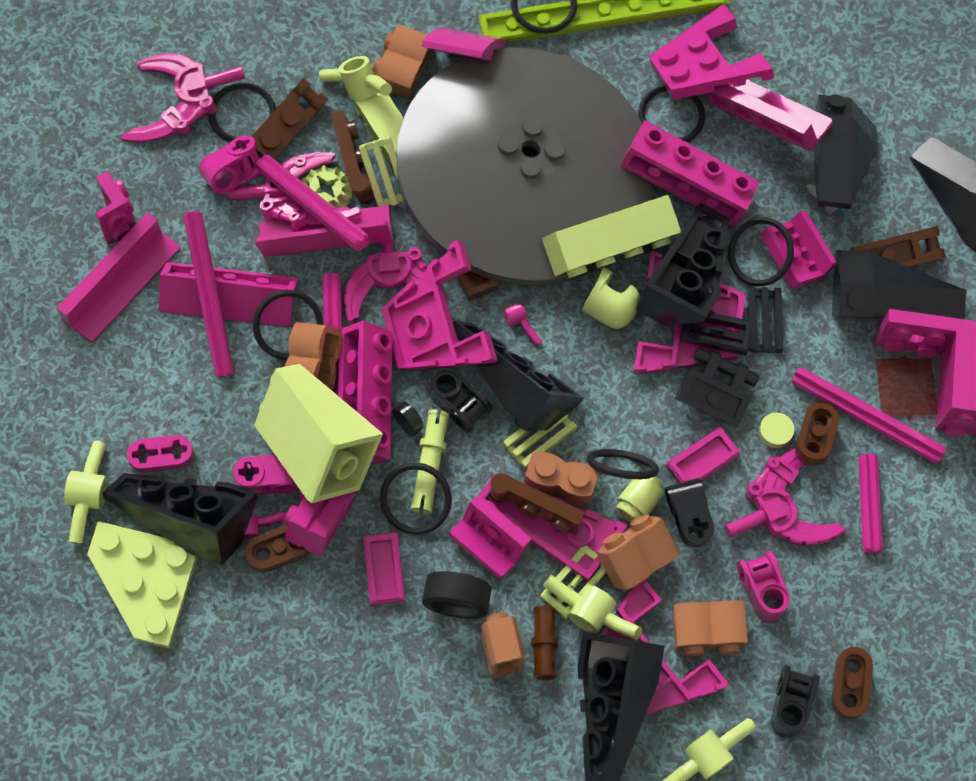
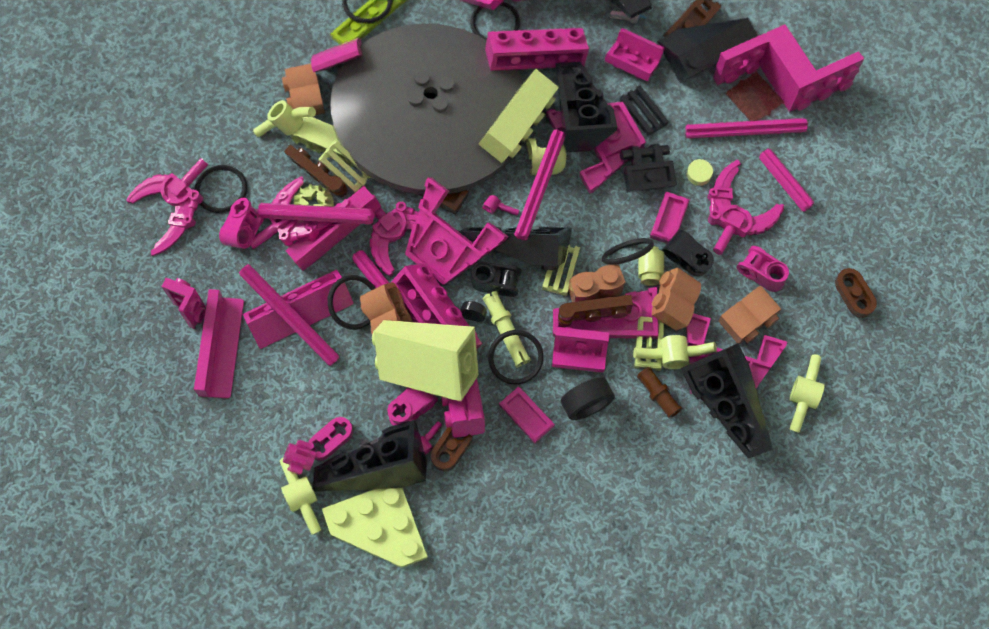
camera: 30 degrees left, 0 degrees up
(111, 450) = (299, 456): none -> dark pink gear
(287, 120) = (256, 173): reddish brown plate -> none
(502, 645) = (638, 410): nougat brick -> none
(573, 326) = (539, 185): none -> dark pink axle
(715, 343) = (646, 135): black tile -> none
(789, 258) = (635, 66): black tyre -> none
(794, 695) = (831, 321): black piece -> none
(816, 436) = (728, 160): reddish brown plate -> none

